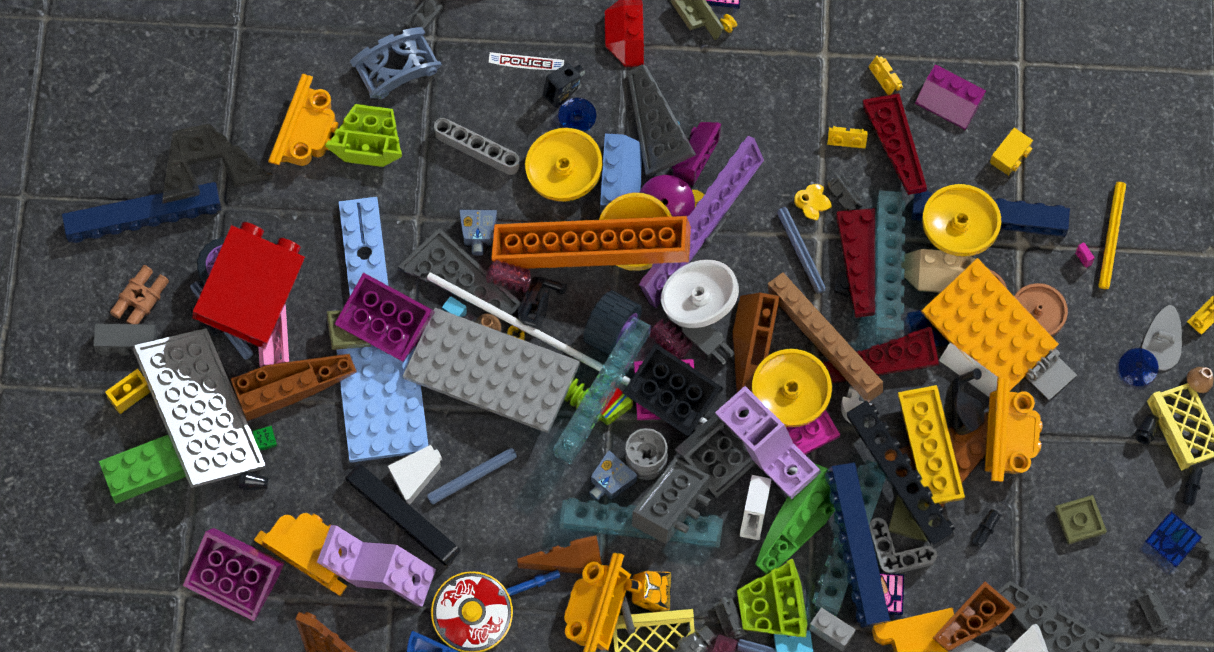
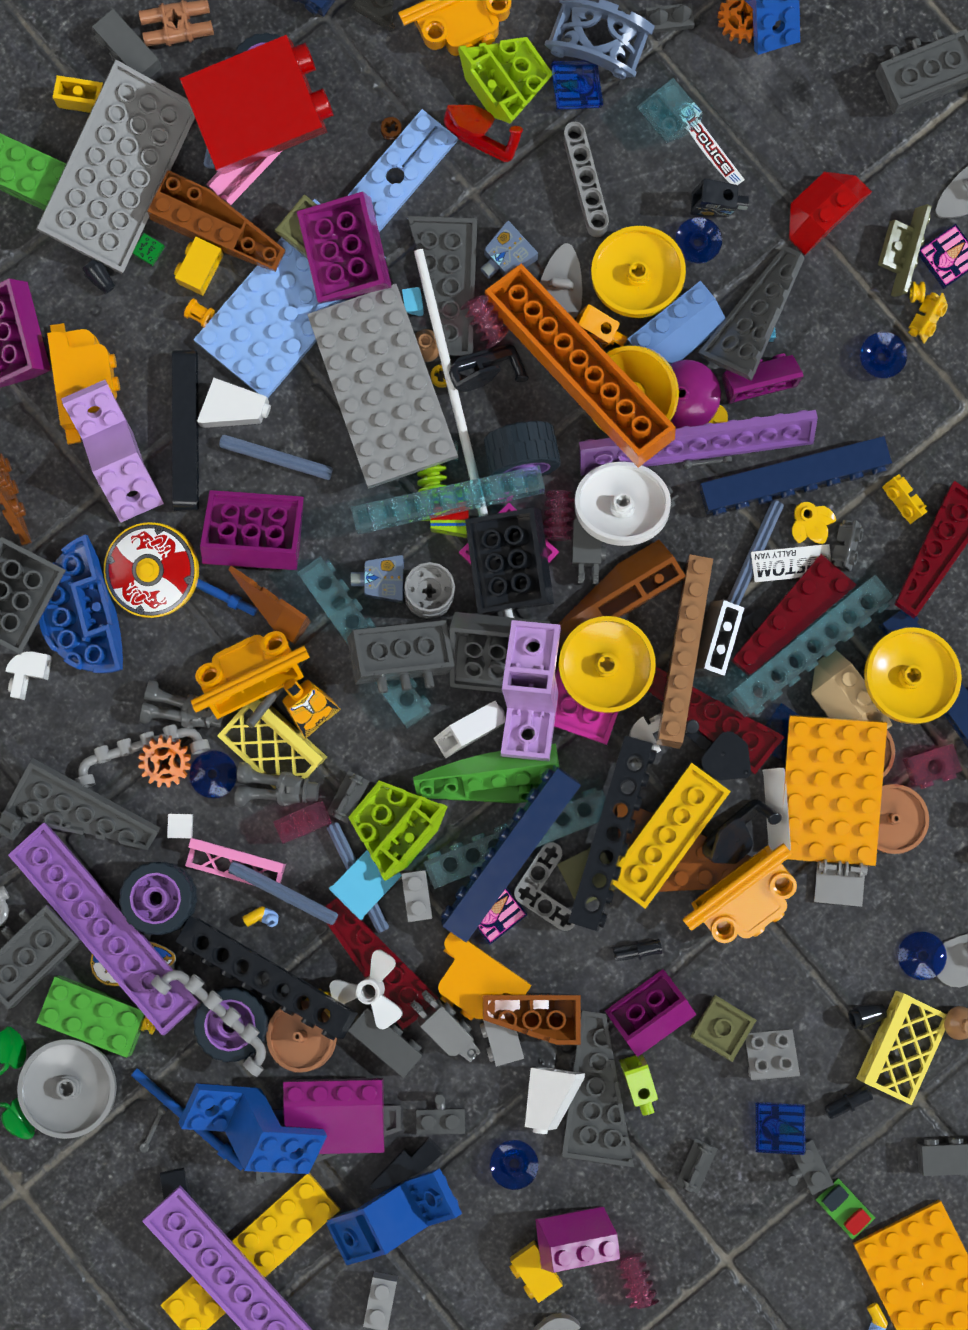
camera: 50 degrees right, 15 degrees up
(306, 415) = (198, 266): none -> yellow brick
(336, 235) = (388, 122): none -> reddish brown bush
(336, 442) = (198, 312): none -> light orange bush
(382, 180) = (470, 125): none -> red piece
(412, 101) = (576, 84): none -> clear blue tile
(483, 62) = (671, 111): none -> clear light blue slope
(506, 529) = (252, 530): none -> magenta slope
(522, 209) = (564, 279): none -> light grey shield
(577, 212) = (594, 321): none -> light orange torso
(748, 66) = (891, 347): none -> clear blue dish
(752, 35) = (934, 308): none -> yellow hinge
(774, 185) = (795, 475): none -> dark blue brick
(823, 236) = (786, 562): none -> white sticker
(835, 311) = (718, 637): none -> dark grey brick
(912, 370) = (725, 757): none -> black piece
(1025, 271) = (918, 766): none -> clear pink brick
(1032, 553) = (650, 1012): none -> magenta slope
(1071, 596) = (637, 1077): none -> lime torso
(1123, 505) = (772, 1055): none -> light grey hinge

